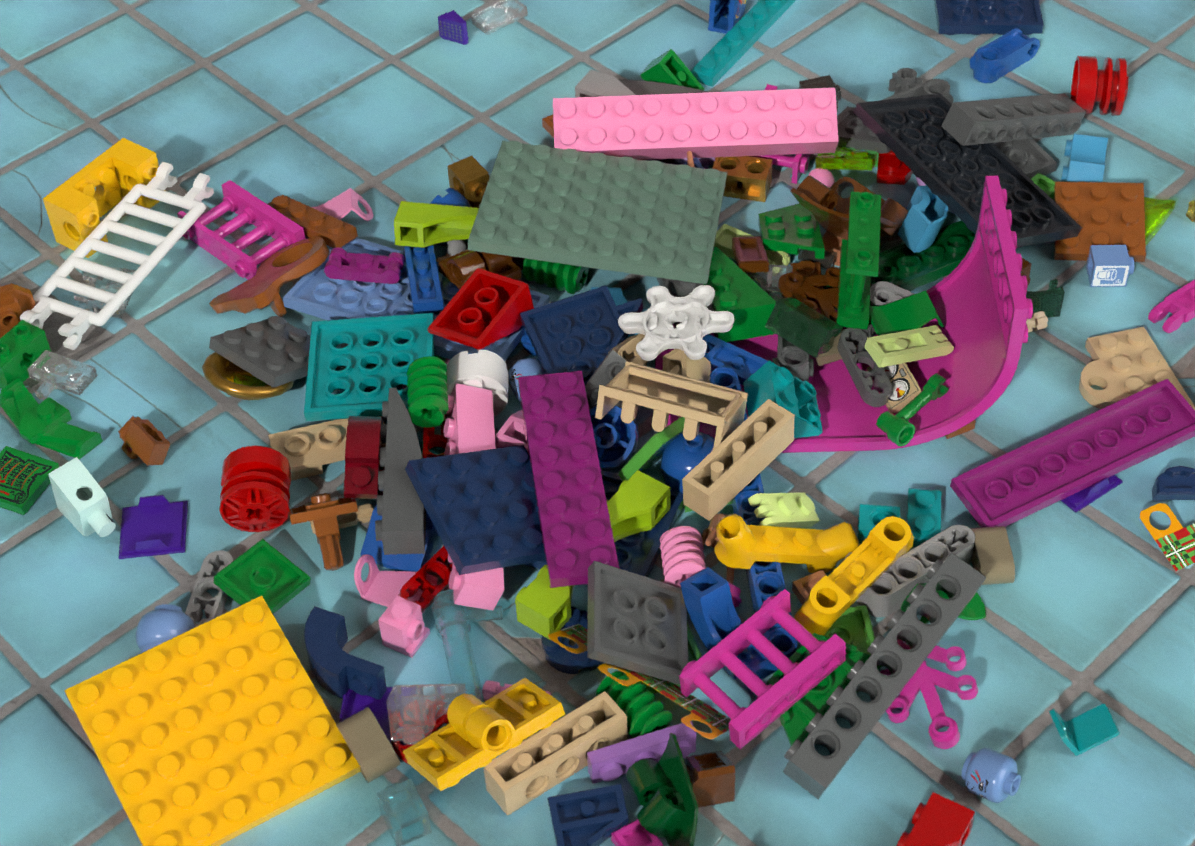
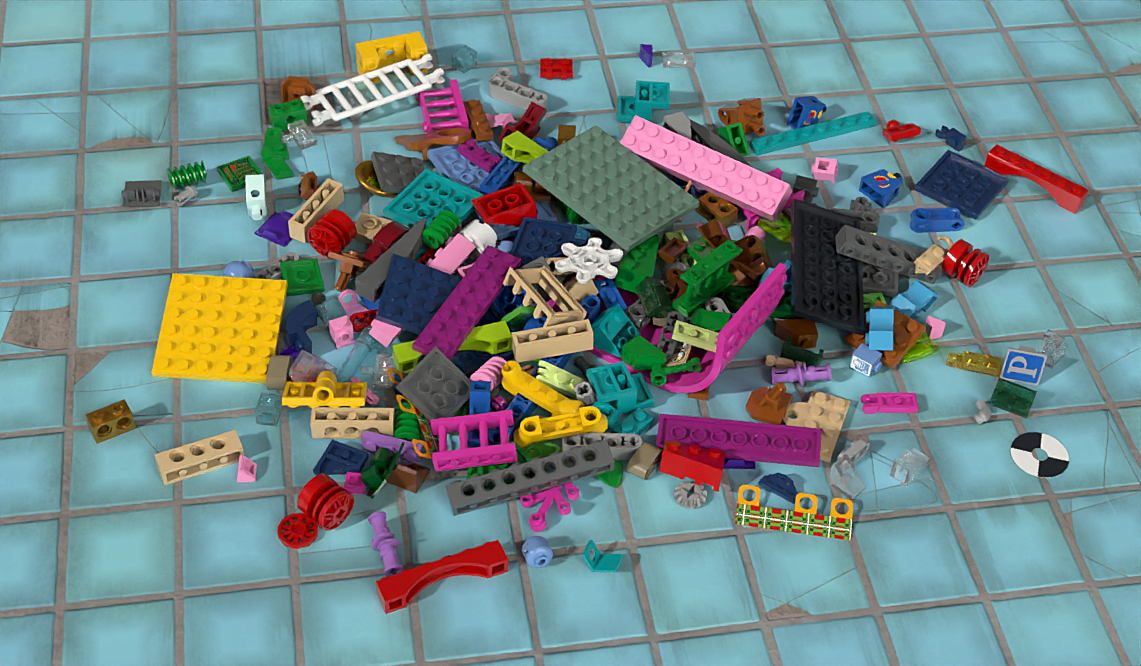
camera: 30 degrees right, 0 degrees up
(196, 470) = (326, 197): none -> tan brick
(208, 150) = (464, 59): none -> clear light blue brick
(320, 597) = (318, 298): none -> clear smoke pin
(328, 161) = (512, 93): none -> light grey beam
(347, 103) = (556, 68): none -> red plate
(361, 604) = (330, 310): none -> clear light blue brick
(386, 194) = (528, 124): none -> dark red arch
(516, 86) = (647, 96): none -> teal bracket
(517, 650) = (379, 372): none -> clear plate
(659, 36) = (747, 112): none -> dark orange piece
(786, 475) = (582, 364): none -> clear smoke pin
(818, 59) = (825, 169): none -> bright pink brick
(838, 509) = (585, 393): none -> light grey piece
(853, 412) = (642, 354): none -> green slope
(868, 473) = (616, 385): none -> teal bracket
(902, 47) = (881, 186): none -> blue torso
(1058, 325) = (801, 374): none -> medium lavender piece
(1062, 94) = (933, 256): none -> tan plate
(1062, 386) = (769, 404): none -> dark orange piece
(1064, 518) = (693, 462): none -> red wedge
(1081, 574) = (695, 500): none -> light grey gear
(1102, 212) = (881, 327): none -> dark azure brick
(1140, 175) = (934, 327): none -> bright pink slope

